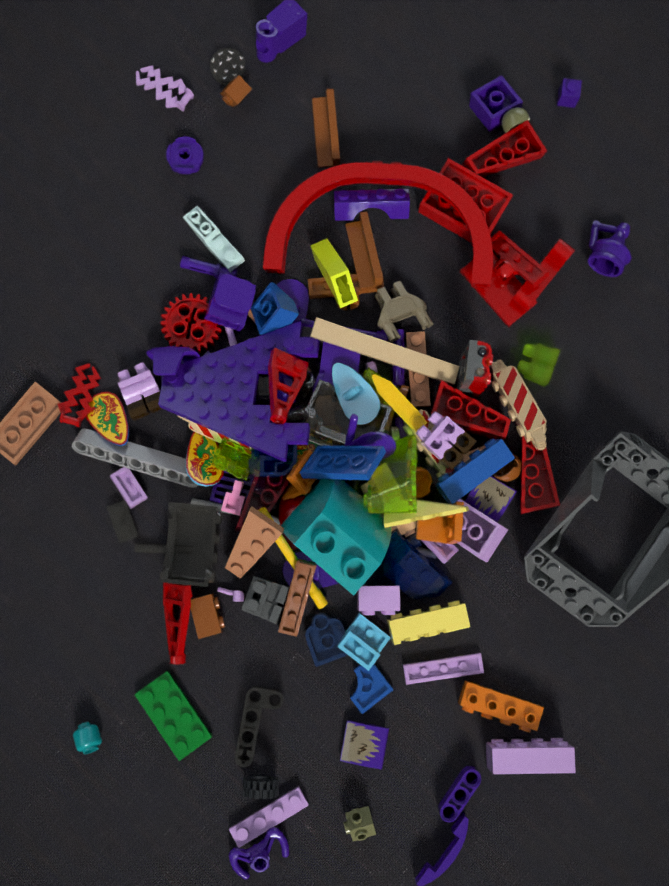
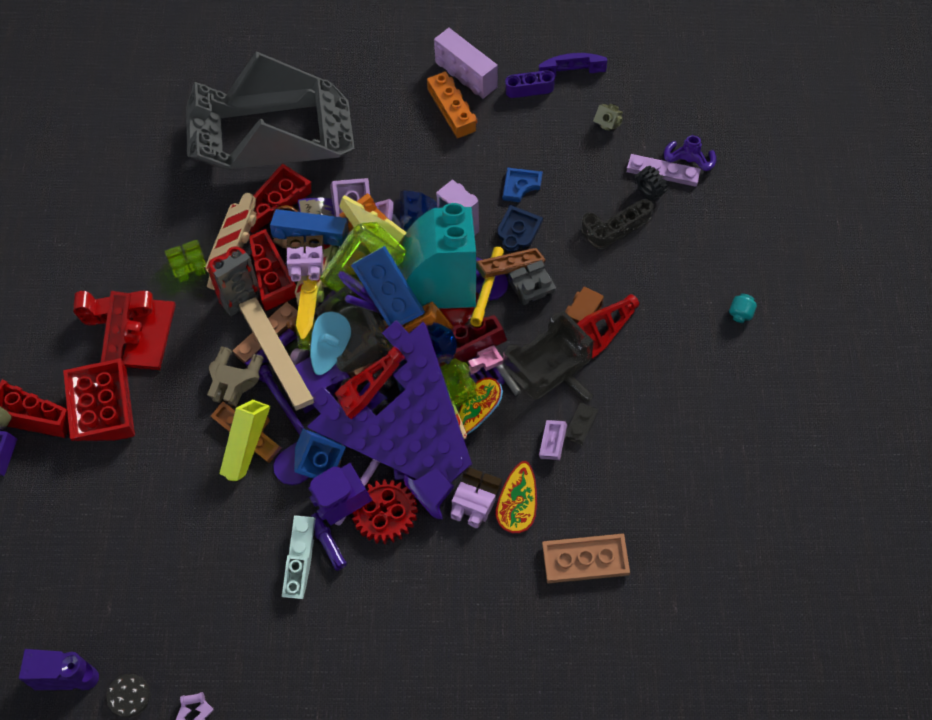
camera: 130 degrees left, 20 degrees down
(81, 388) = (516, 543): red piece -> none
(133, 457) = (525, 449): light grey beam -> none
(173, 715) = (669, 275): green plate -> none
(192, 163) = (245, 663): dark purple plate -> none
(235, 91) = (148, 660): dark orange brick -> none
(238, 596) = (549, 305): lavender hand -> none
(253, 541) = (499, 310): nougat wing -> none
(326, 130) = (119, 561): dark orange panel -> none
(363, 641) = (496, 206): medium azure slope -> none
(364, 253) = (204, 439): dark orange panel -> none
(364, 744) = (559, 155): slope -> none
(388, 174) = (185, 515): red arch -> none
(392, 201) = (170, 479): dark purple arch -> none
(428, 623) = (434, 176): light yellow wedge -> none
(443, 668) = (463, 154): lavender tile -> none
(609, 254) = (55, 279): dark purple piece -> none

